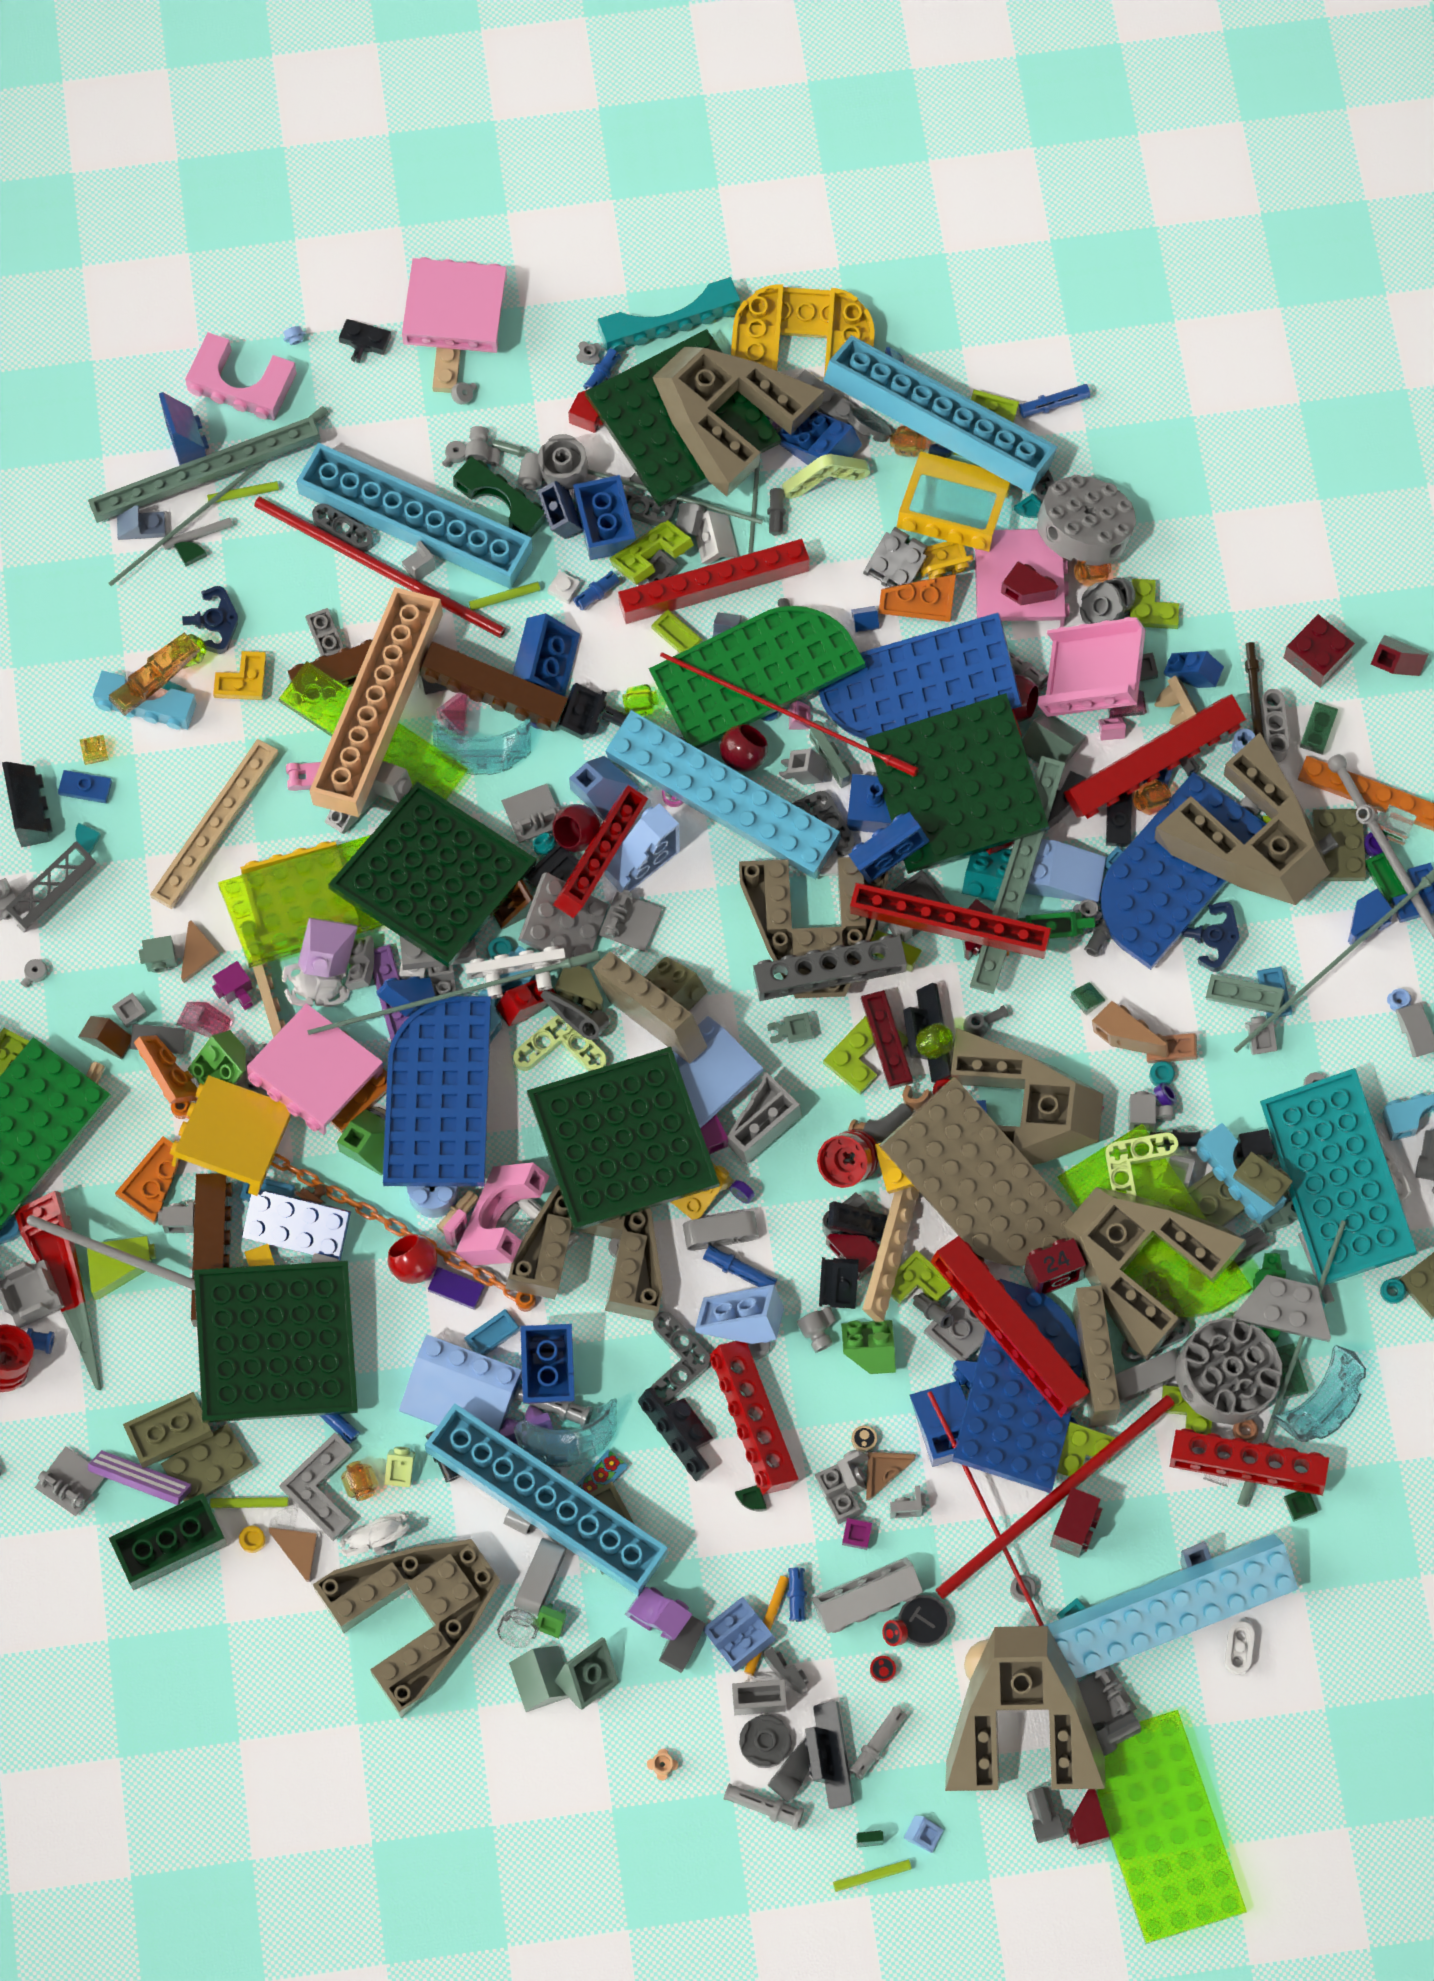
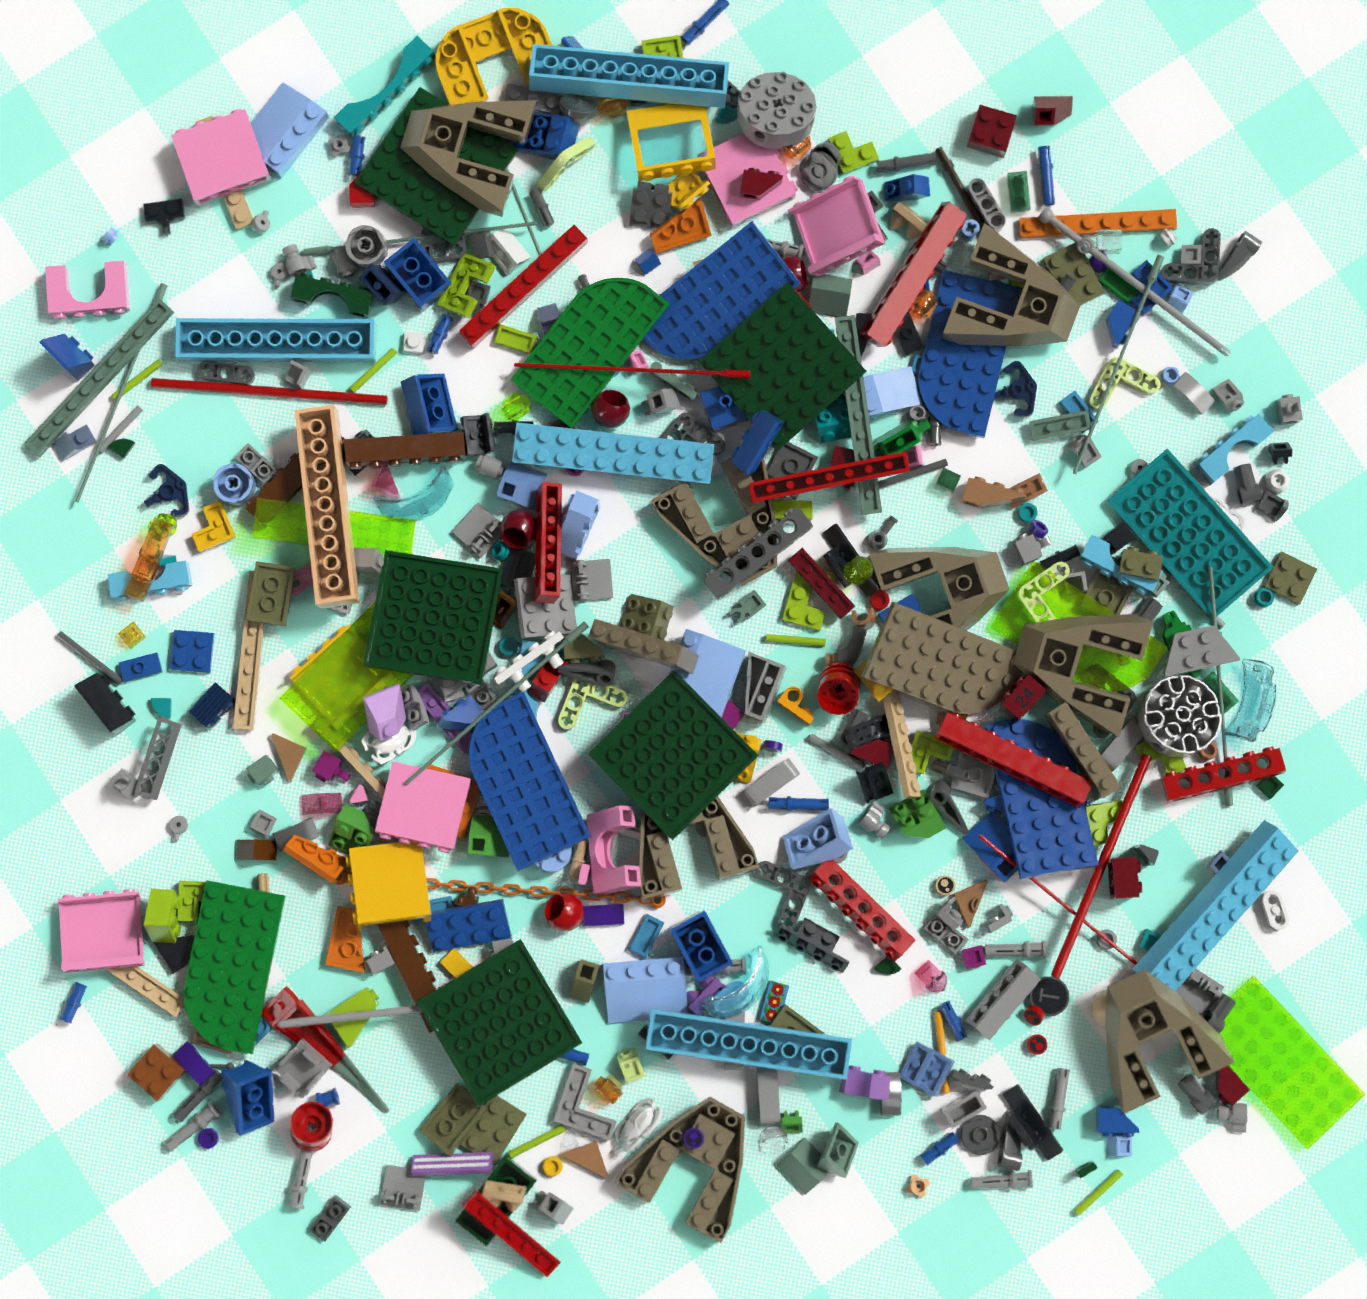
camera: 25 degrees left, 15 degrees up
(35, 752) = (89, 657): none -> dark grey bar
(140, 861) = (212, 705): none -> dark blue brick
(150, 796) = (192, 651): none -> blue plate
(165, 1581) = (511, 1233): none -> red plate
(171, 1524) = (511, 1194): none -> tan tile
(230, 1582) = (554, 1207): none -> light grey brick
(250, 1030) = (360, 795): none -> bright pink slope
(267, 770) = (271, 593): none -> olive plate
(284, 629) = (226, 492): none -> light blue brick
(396, 1346) = (584, 980): none -> olive slope
(428, 1574) = (693, 1138): none -> tile
(542, 312) = (287, 127): none -> light blue slope
(578, 749) = (490, 466): none -> light grey brick
(709, 1733) = (939, 1148): none -> blue pin
(788, 1160) = (803, 714): none -> light orange plate
(797, 1534) = (932, 977): none -> clear pink tile
(810, 1230) = (836, 751): none -> light grey bar
(827, 1090) = (795, 640): none -> lime bar
(910, 1350) = (945, 804): none -> dark grey piece
(922, 1557) = (1026, 949): none -> light grey pin
(930, 1798) = (1113, 1120): none -> blue slope
(1049, 972) = (912, 473): none -> dark grey bar
(1061, 955) = (915, 457): none -> bright pink slope
(1080, 1860) = (1237, 1114): none -> light grey piece
(1117, 1507) = (1148, 854): none -> dark grey slope
(1206, 642) = (905, 162): none -> dark grey pin
(1344, 975) = (1122, 375): none -> yellowish green beam
(1361, 718) = (1045, 167): none -> blue pin

